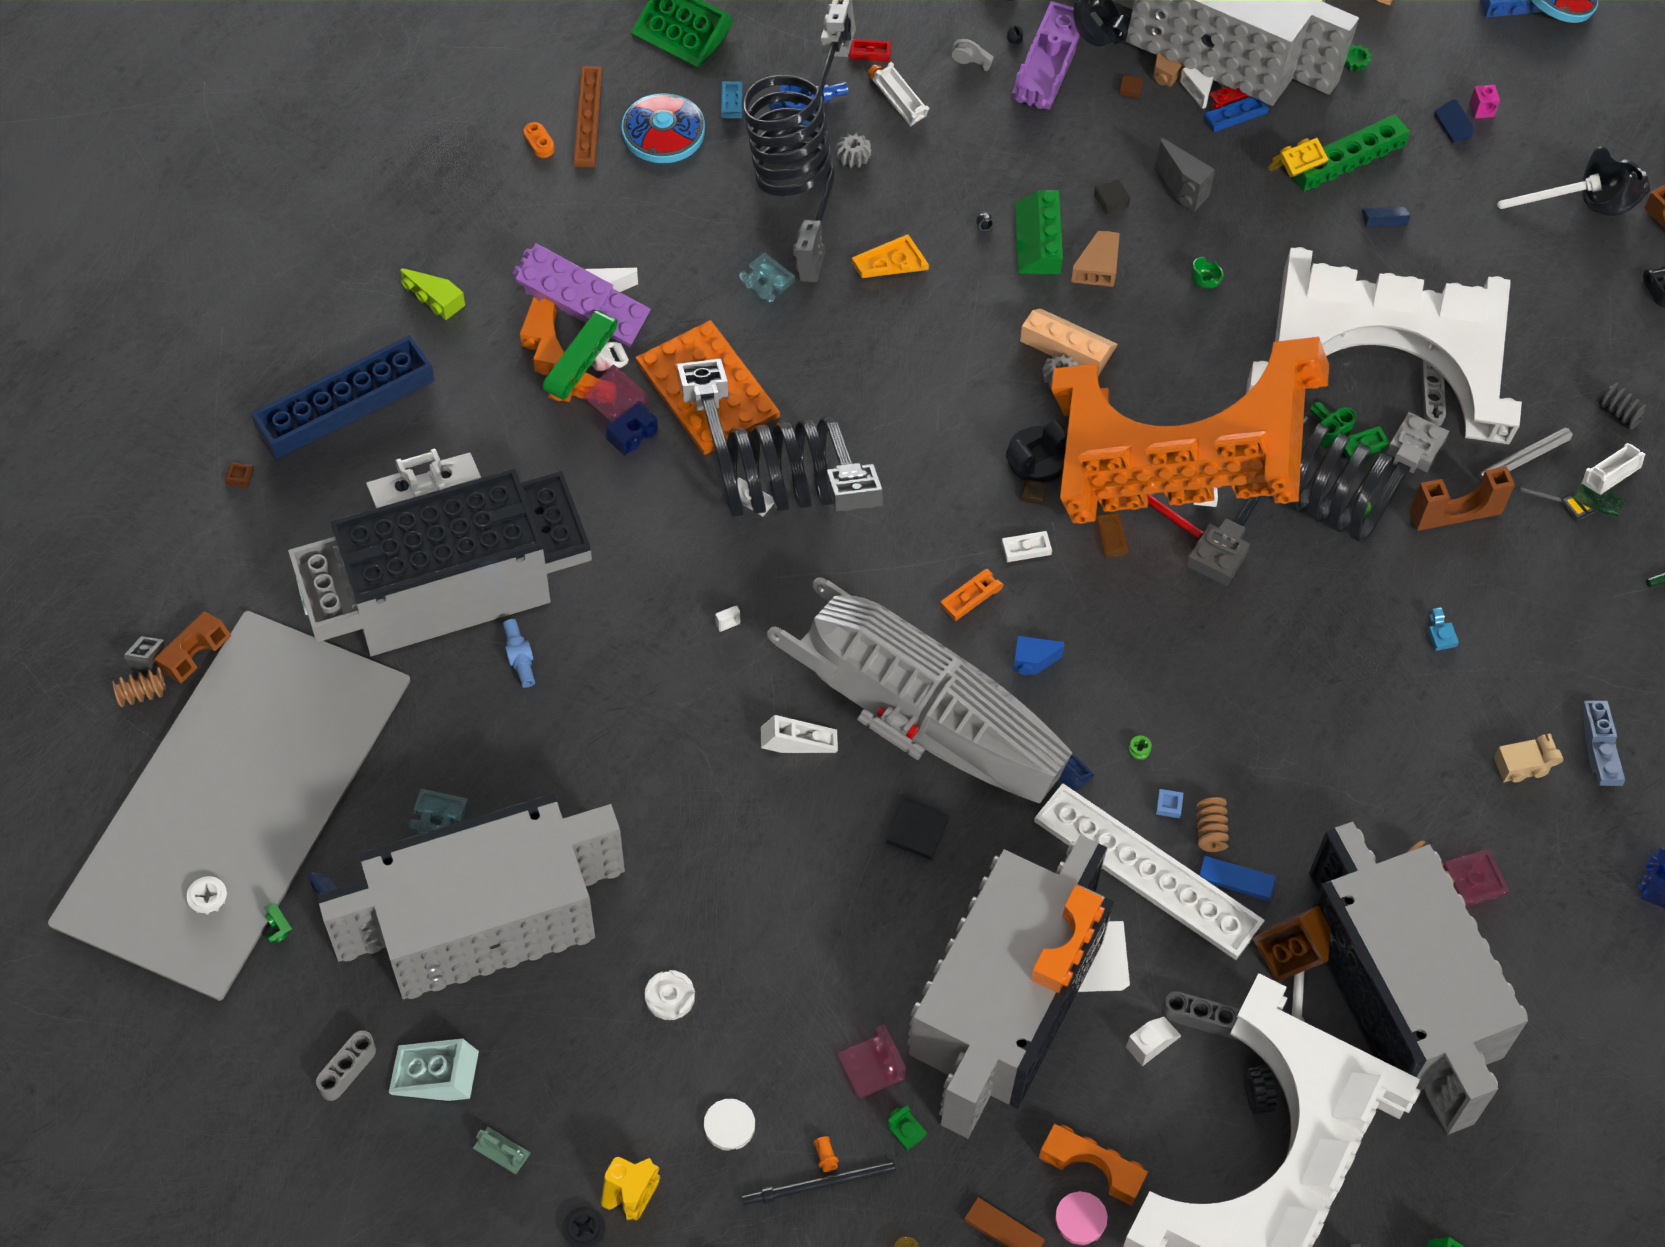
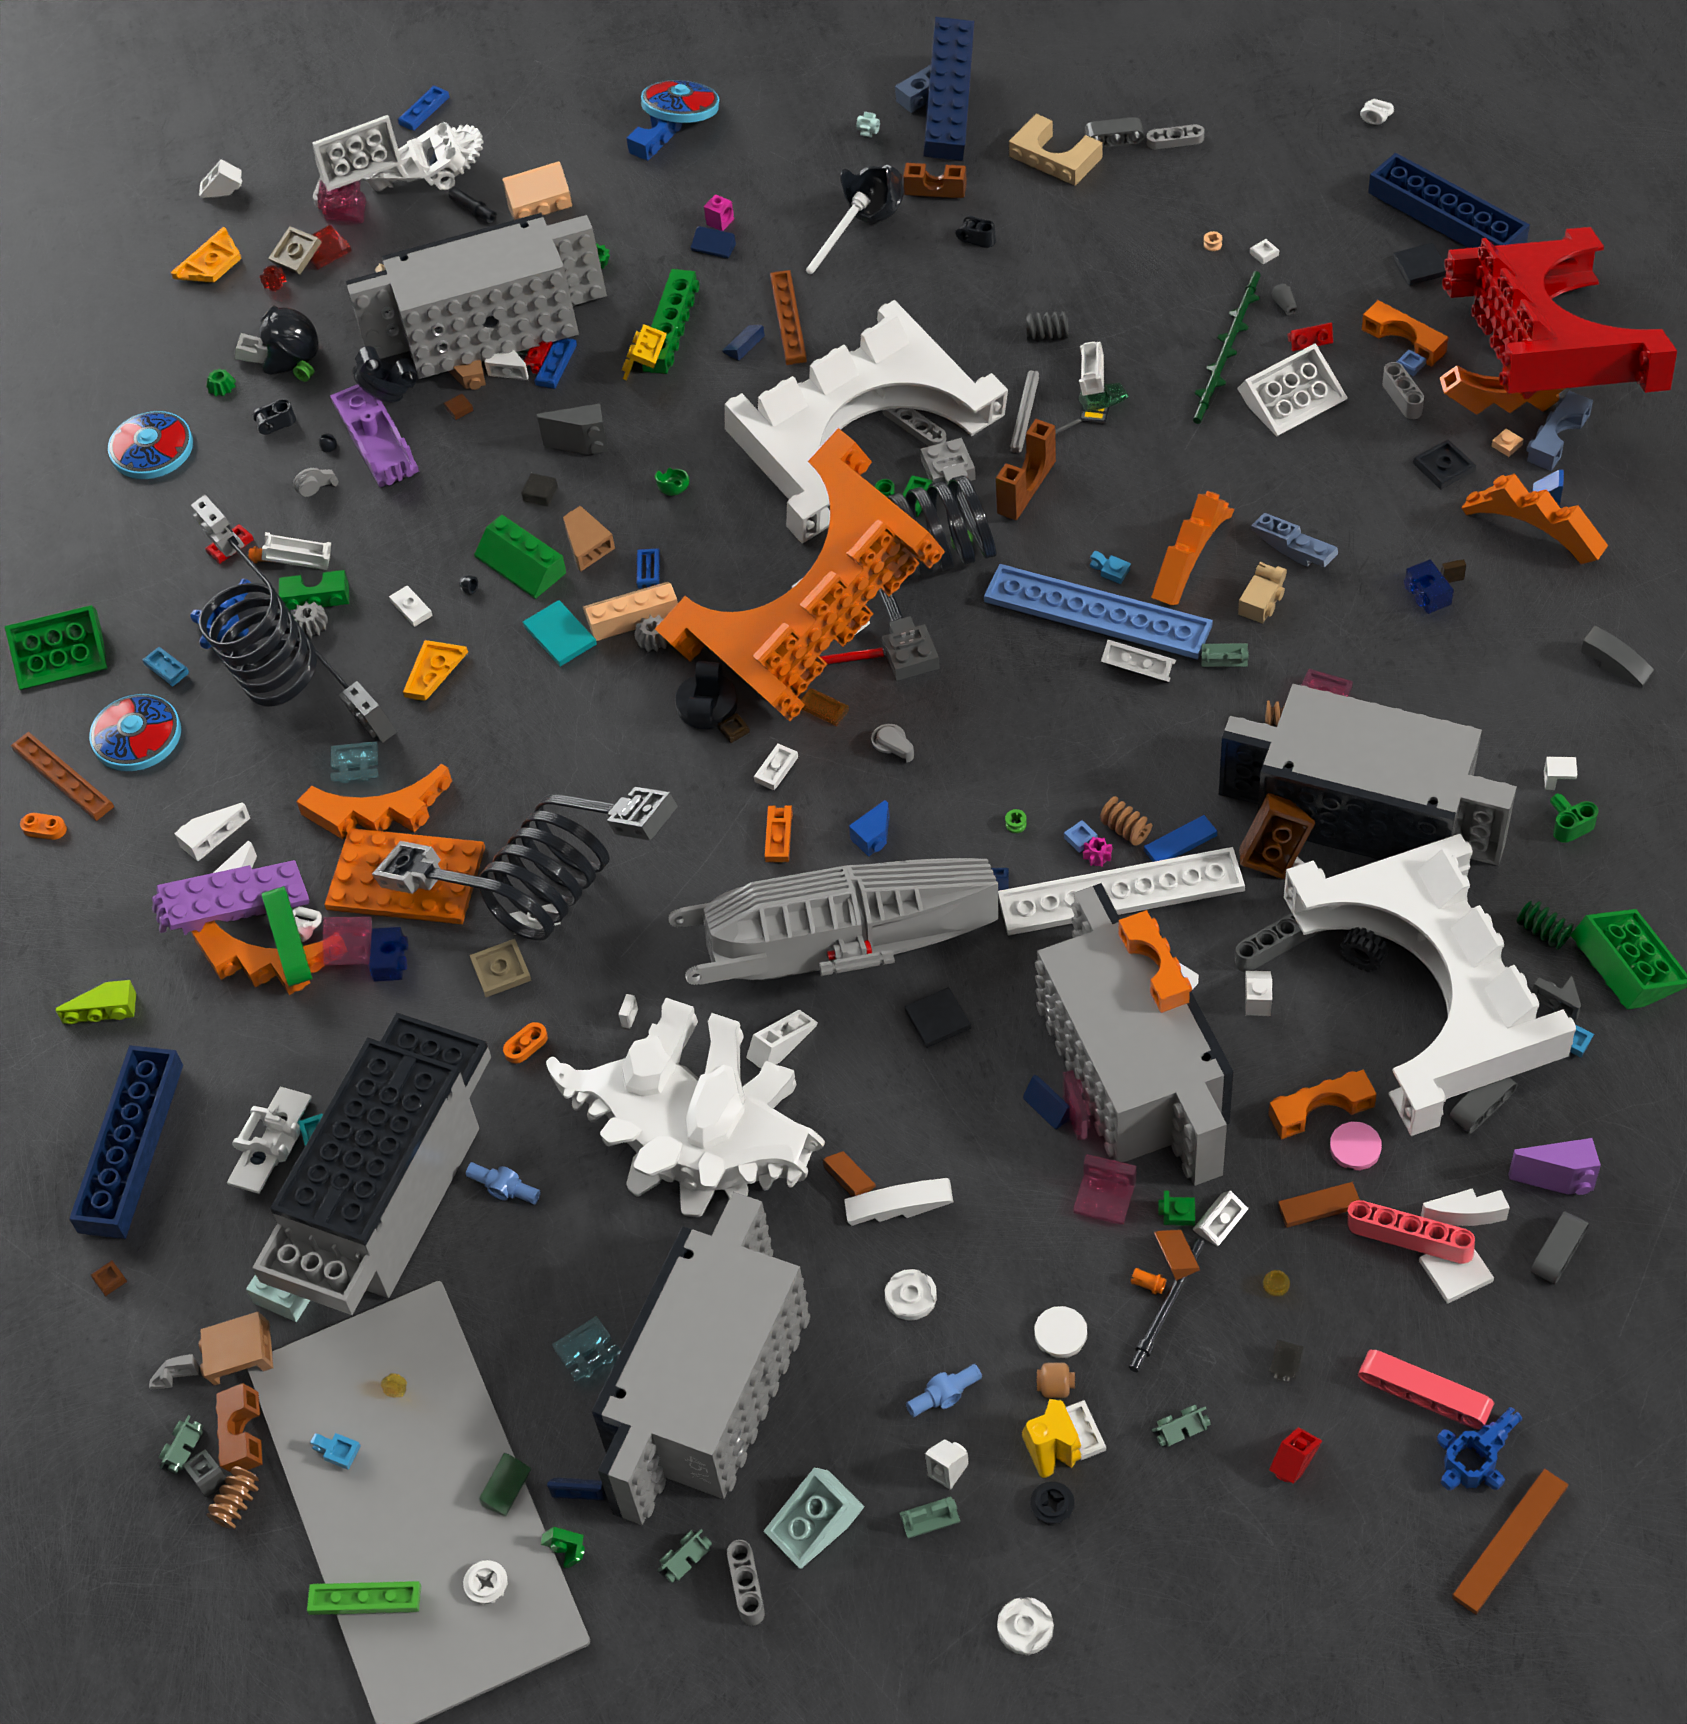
camera: 40 degrees left, 5 degrees down
(133, 828) = (364, 1598): none -> bright green plate
(163, 618) = (174, 1454): none -> sand green hinge
(202, 568) = (174, 1367): none -> light grey slope
(227, 720) = (337, 1451): none -> dark azure plate
(249, 594) = (235, 1346): none -> medium nougat panel
(288, 846) = (504, 1484): none -> dark green slope
(302, 714) = (394, 1385): none -> clear yellow plate
(324, 1007) = (675, 1561): none -> sand green hinge
(551, 1126) = (946, 1462): none -> white slope
(609, 1079) = (943, 1390): none -> medium blue pin
(625, 238) = (208, 831): none -> white slope
(643, 572) = (524, 1043): none -> orange plate
(660, 1203) = (1087, 1430): none -> white plate
(665, 734) = (691, 1127): none -> white animal
(684, 1151) = (1055, 1380): none -> medium nougat head
(687, 508) = (500, 968): none -> dark tan plate
(730, 874) = (848, 1174): none -> dark orange slope
(736, 924) = (896, 1200): none -> white slope
(739, 327) = (375, 813): none -> orange arch
(865, 1155) = (1177, 1253): none -> dark orange slope
(892, 143) = (330, 592): none -> green arch
(912, 963) = (1046, 1102): none -> dark blue slope
(915, 990) = (1078, 1107): none -> clear pink plate
(927, 1166) = (1220, 1218): none -> white slope
(930, 201) = (410, 606): none -> white plate
(1002, 312) = (559, 633): none -> teal tile
(1120, 329) = (648, 581): none -> blue tile
(1125, 606) = (892, 740): none -> light grey piece
(1172, 826) = (1097, 851): none -> dark pink gear
(1369, 718) = (1137, 660): none -> white container
(1390, 656) = (1098, 611): none -> medium blue plate
(1417, 1212) = (1544, 925): none -> dark green piece
(1440, 226) = (788, 317): none -> dark orange tile
(1440, 776) = (1224, 655): none -> sand green hinge
(1487, 674) = (1193, 535): none -> orange arch
(1545, 1157) = (1573, 820): none -> green beam
(1581, 1113) = (1559, 768): none -> white panel

